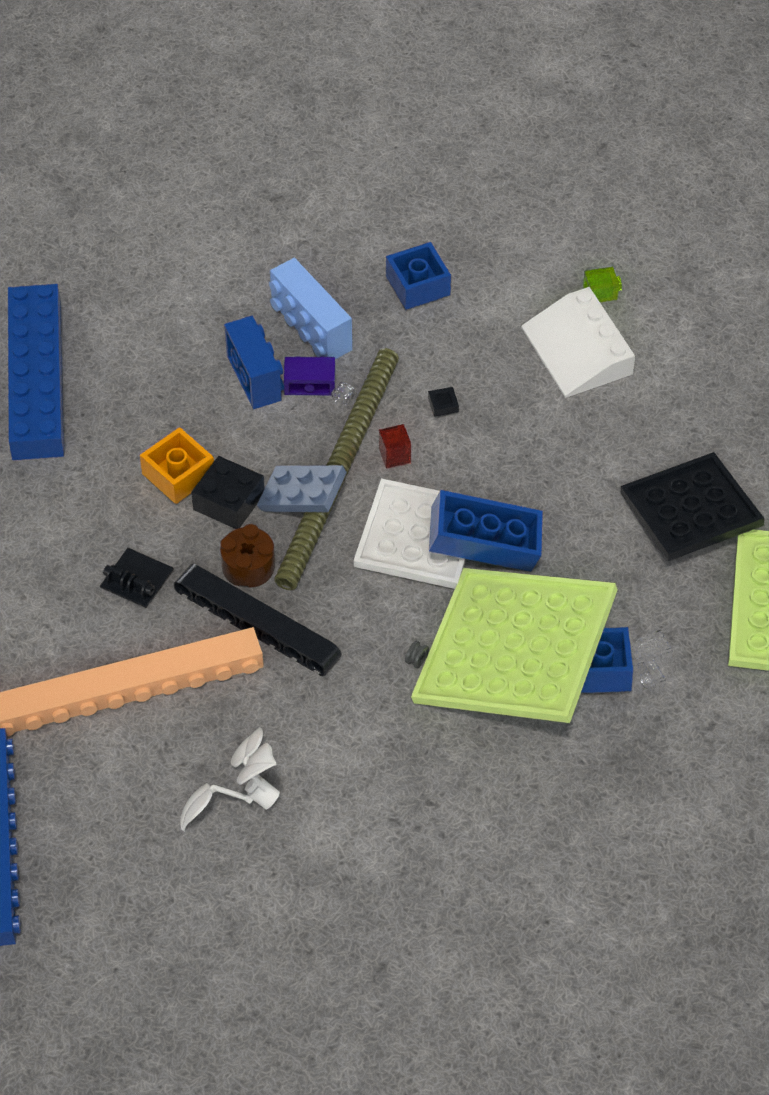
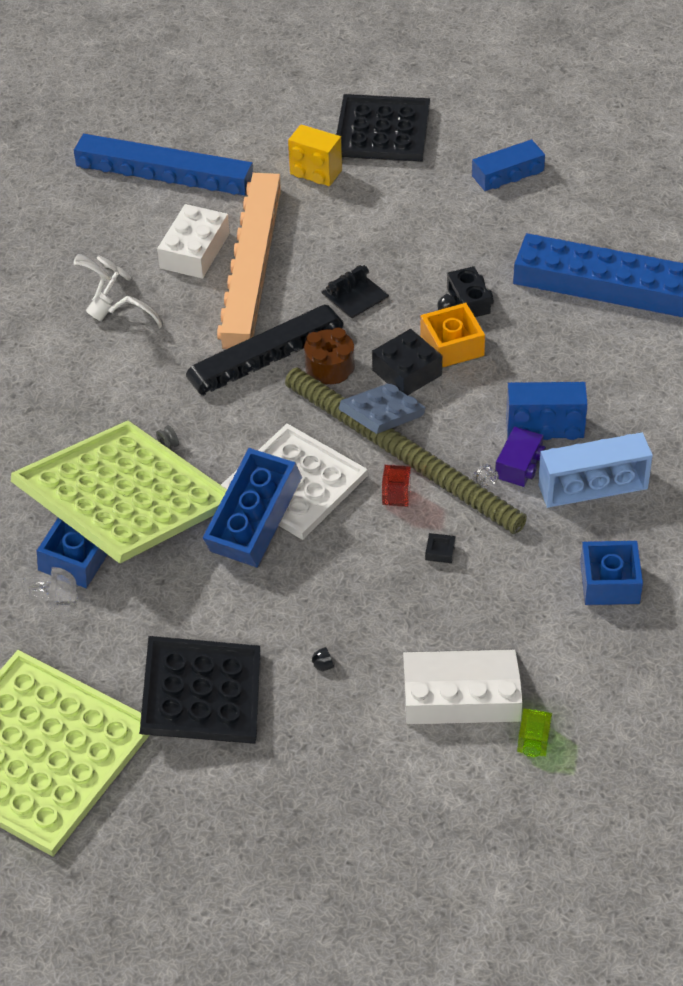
camera: 115 degrees right, 5 degrees down
(103, 477) = (469, 288): none -> black brick
(119, 745) = (193, 241): none -> white brick
(124, 493) = (446, 301): none -> black hinge
(606, 442) = (322, 660): none -> black hinge

